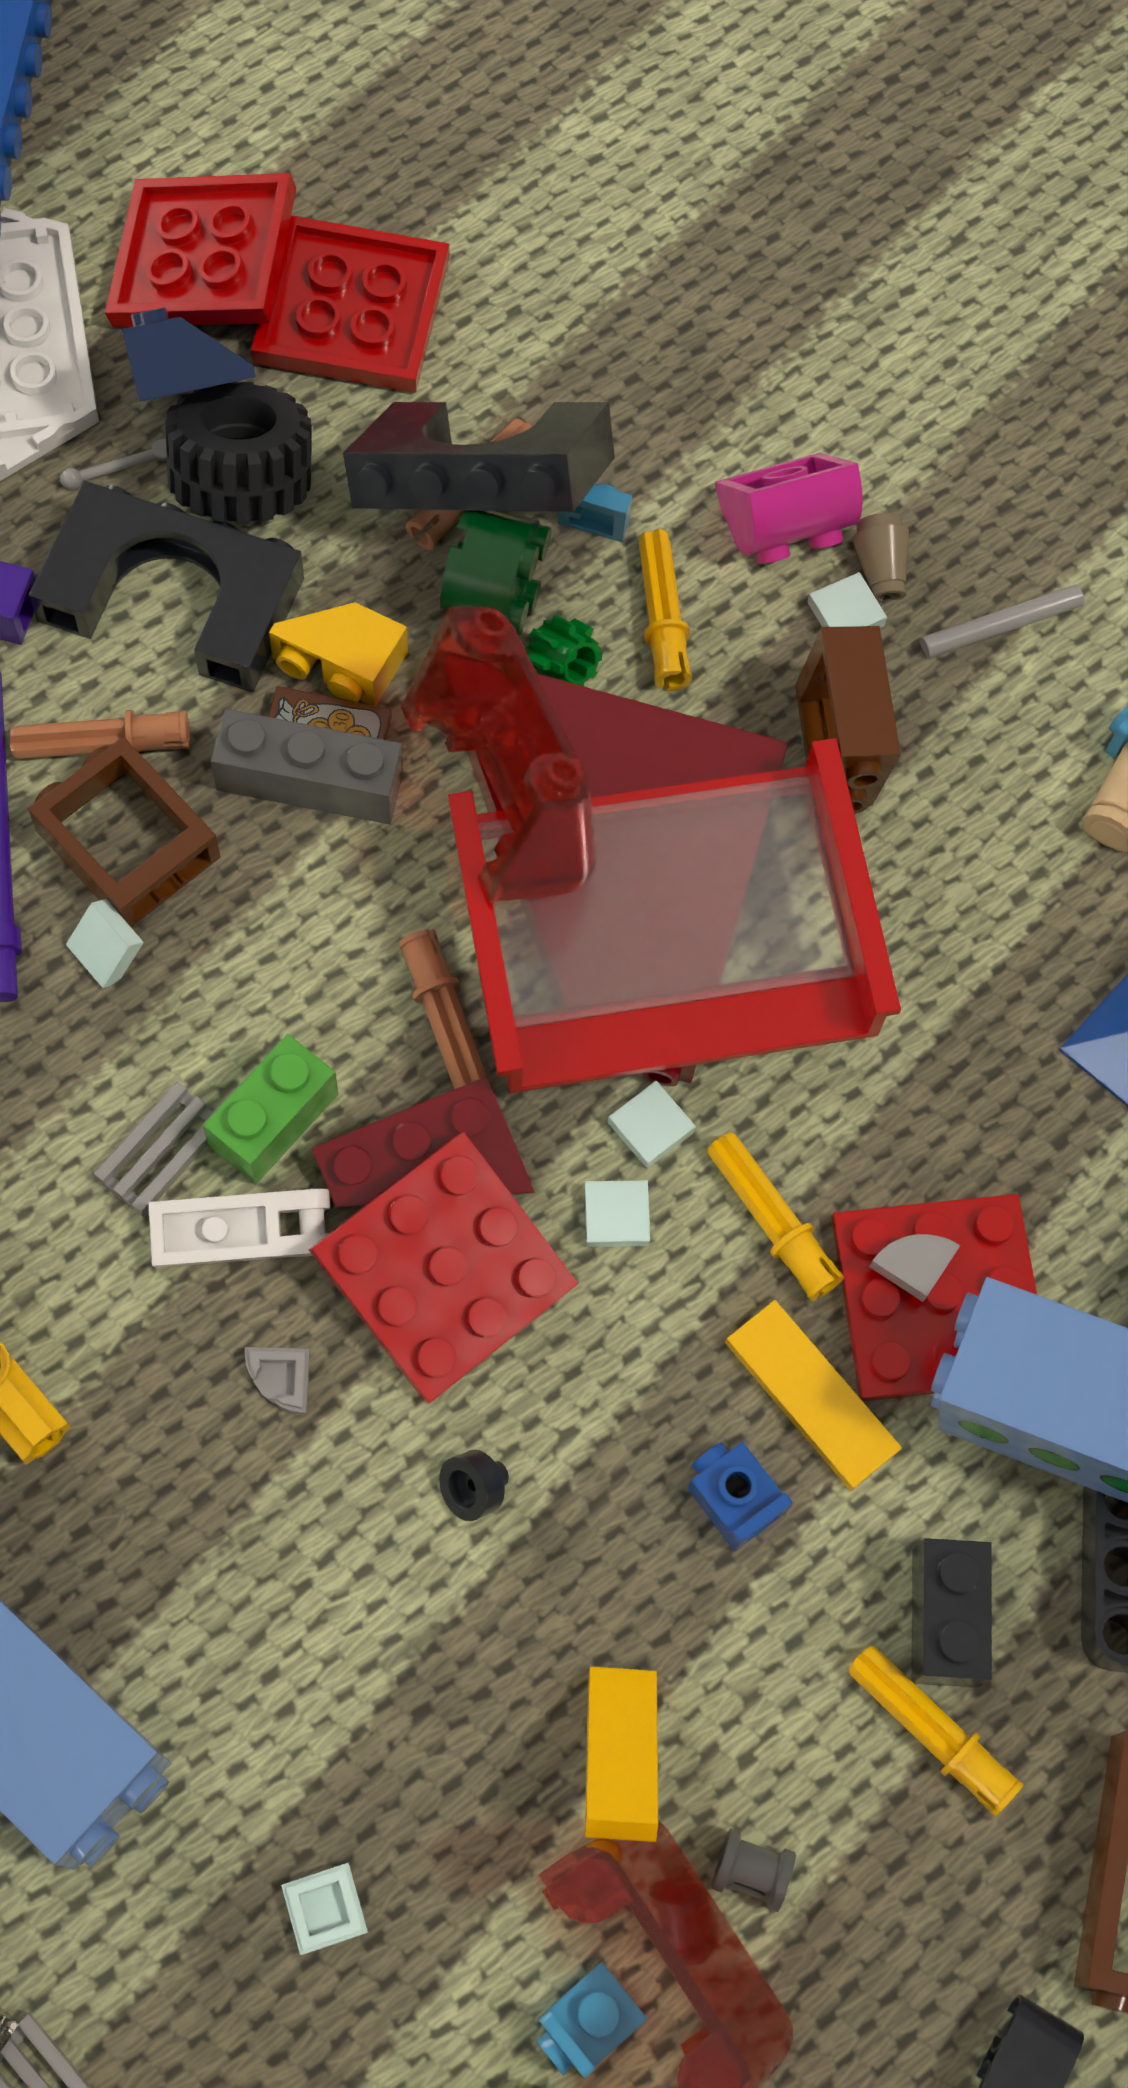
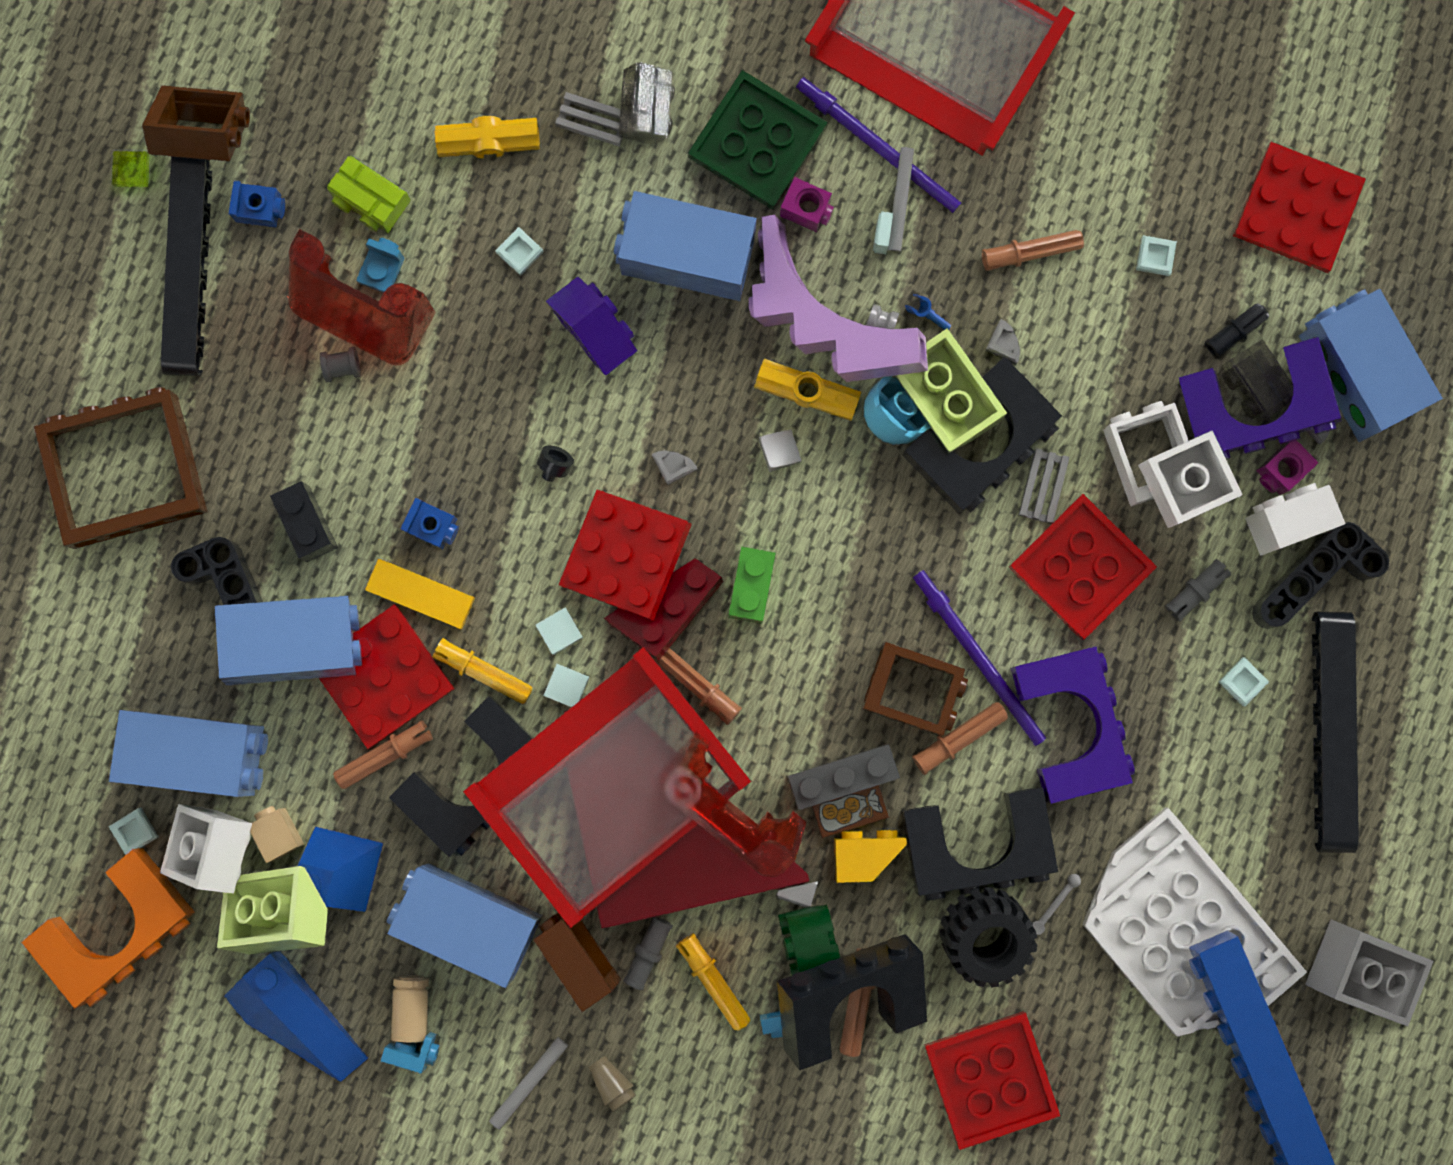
camera: 155 degrees right, 15 degrees up
(95, 1304) = (779, 450): none -> light grey slope
(104, 943) = (886, 626): light aqua tile -> none
(140, 1134) = (801, 512): light grey tile -> none
(177, 357) = (1047, 970): dark blue slope -> none
(202, 248) = (1092, 1061): red plate -> none
(235, 1227) = (733, 521): white plate -> none
(271, 1686) = (593, 324): none -> dark purple brick
(564, 650) = (749, 919): green gear -> none
(622, 1755) = (420, 375): yellow tile -> none
(741, 689) = (647, 953): none -> dark grey pin
(791, 503) = (679, 1086): dark pink brick -> none
(847, 604) = (615, 1040): light aqua tile -> none
(915, 1262) = (398, 679): light grey tile -> none
(933, 1728) = (288, 468): yellow axle -> none
(940, 1015) = (452, 824): none -> black arch
(992, 850) = (463, 924): none -> medium blue brick
(996, 1172) = (382, 755): none -> nougat axle

